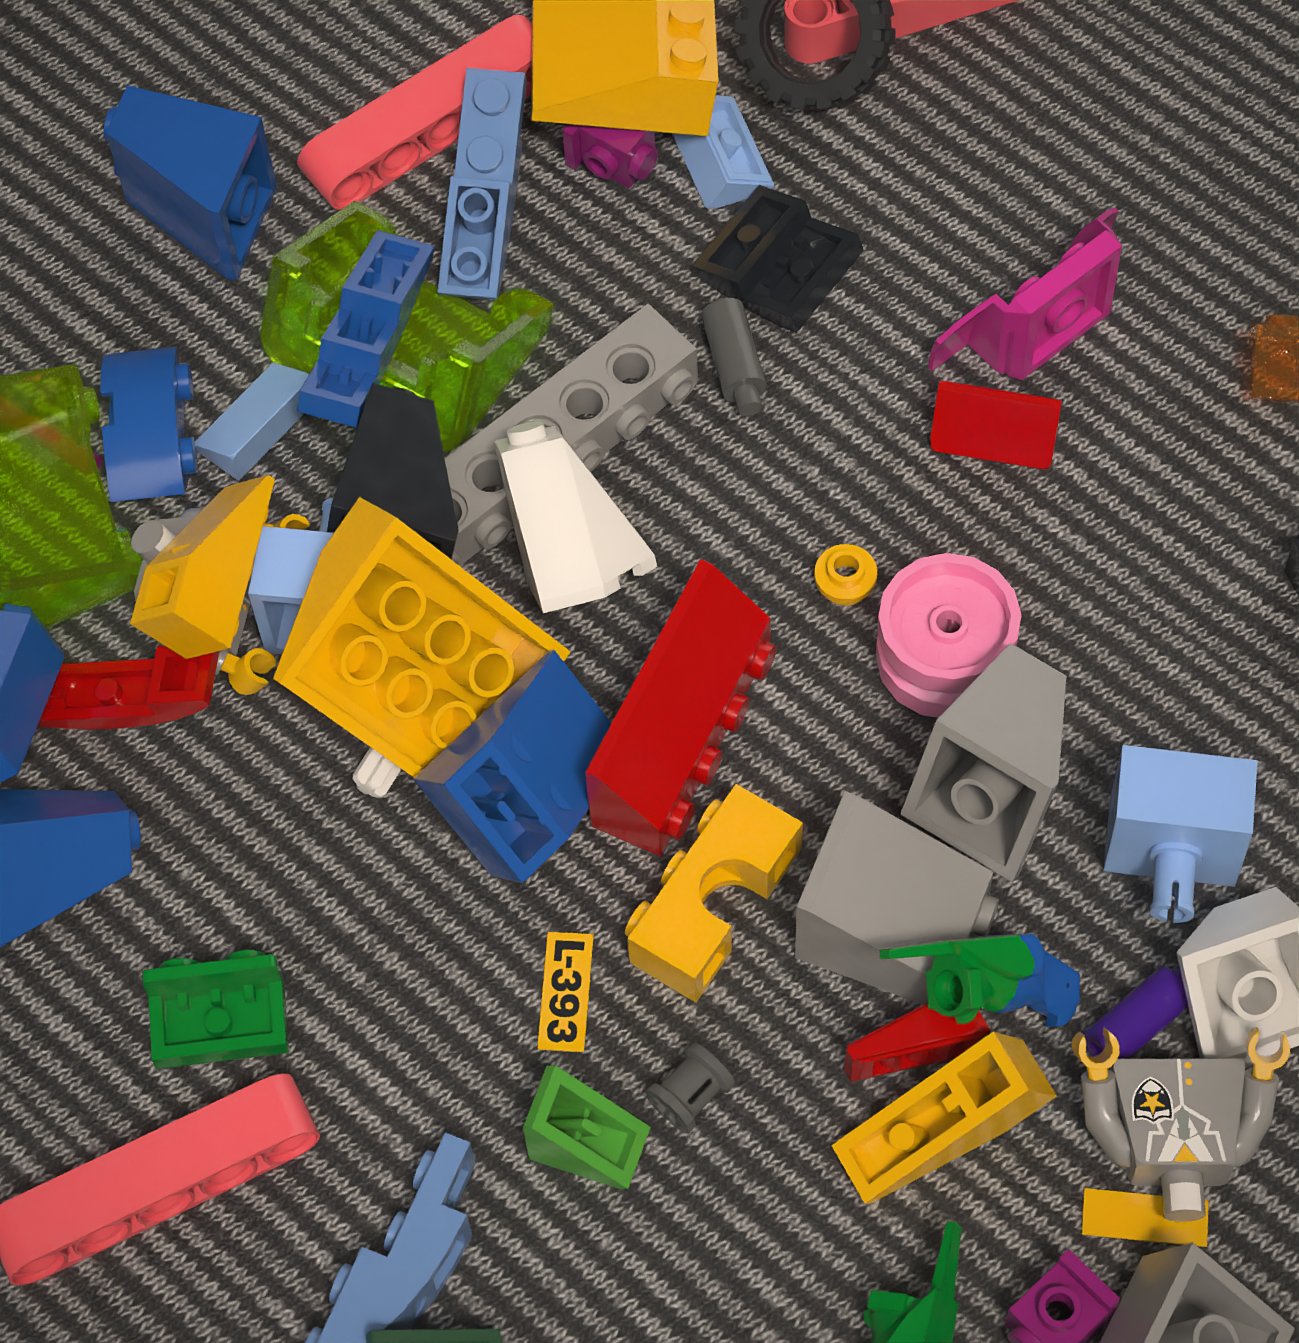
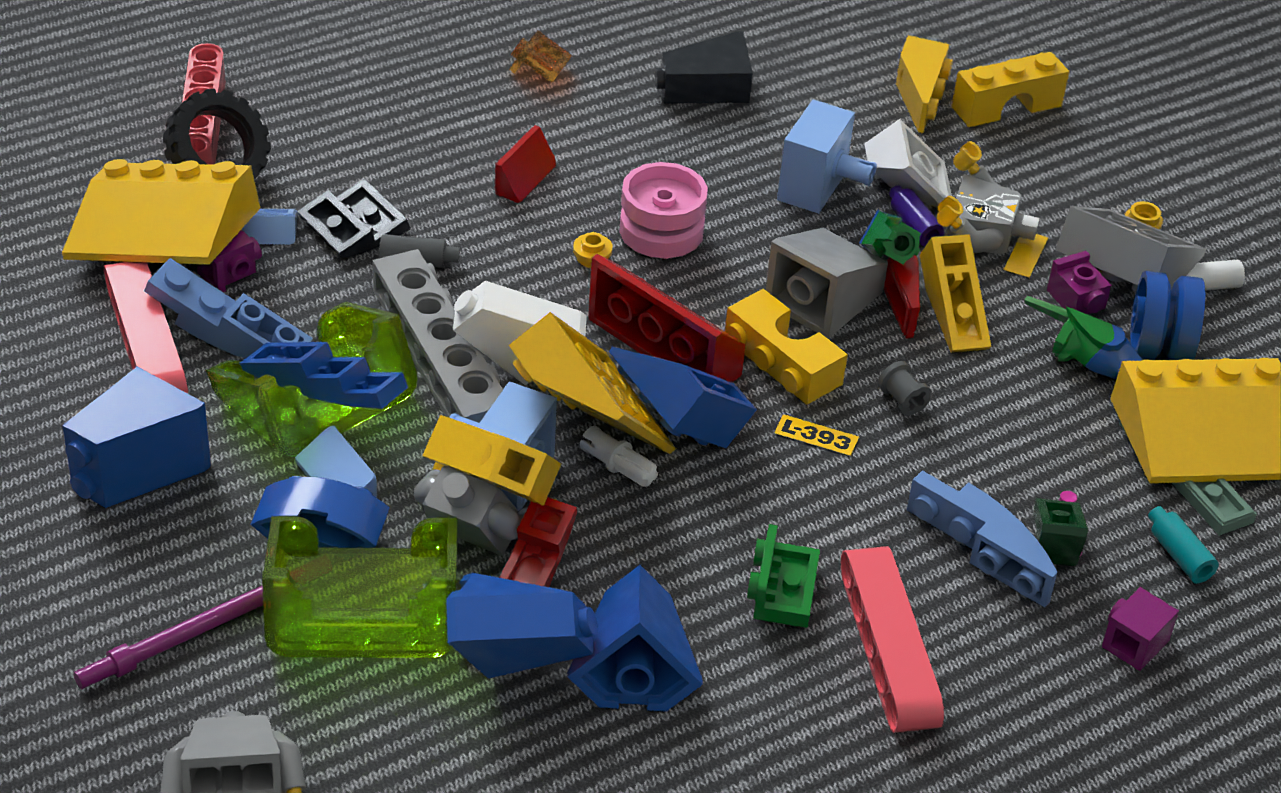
camera: 80 degrees left, 20 degrees down
(399, 467) = (455, 376): black slope -> none
(583, 1131) = (914, 442): bright green slope -> none
(993, 763) = (766, 194): light grey slope -> none
(1045, 310) = (457, 92): dark pink piece -> none

